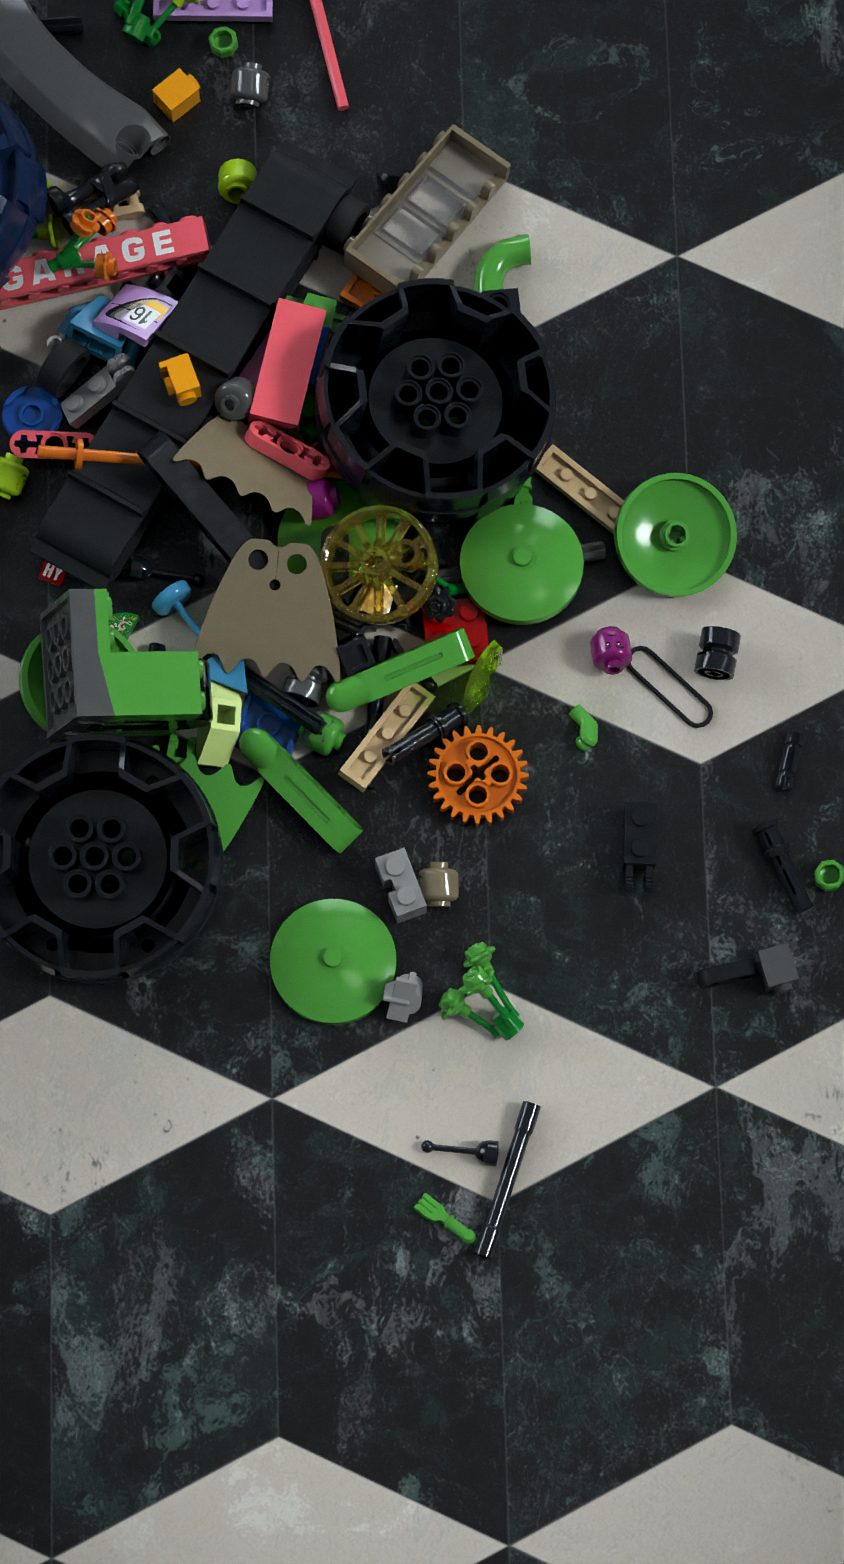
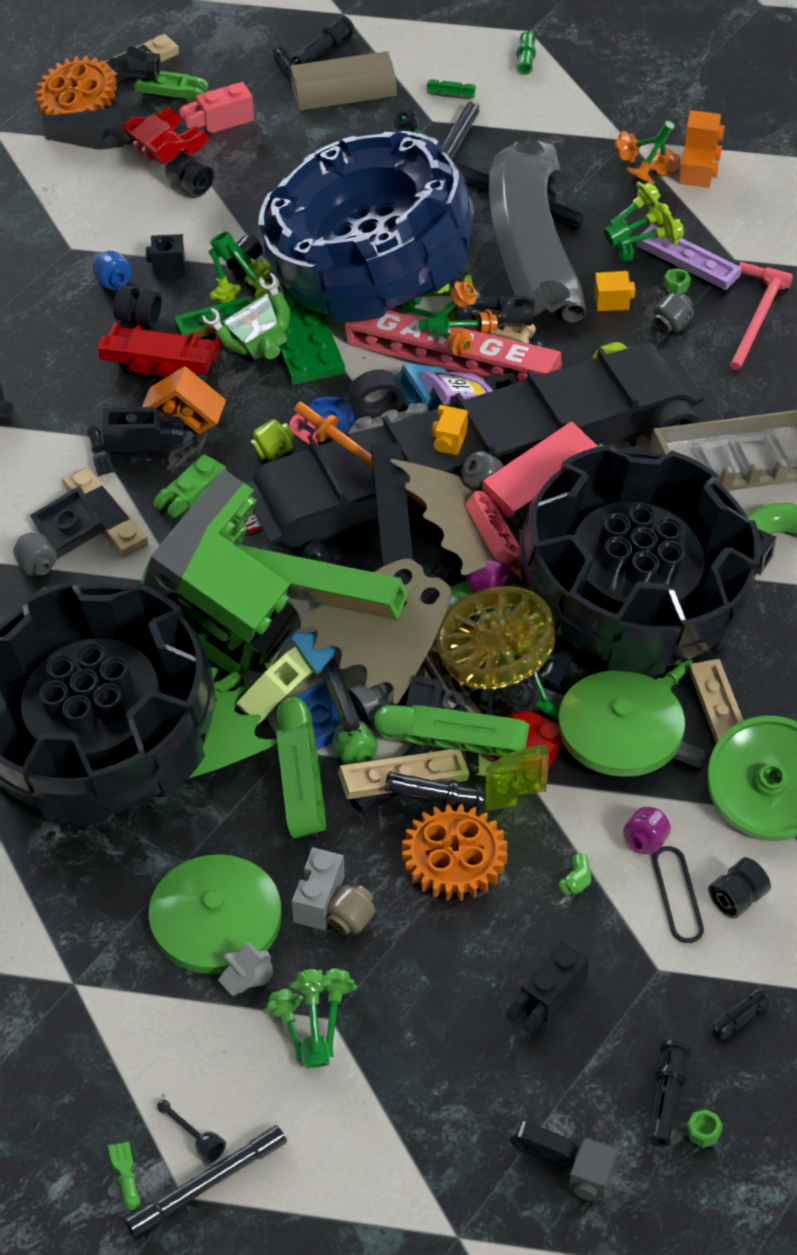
camera: 40 degrees right, 25 degrees down
(195, 610) = (335, 584): none -> bright green brick

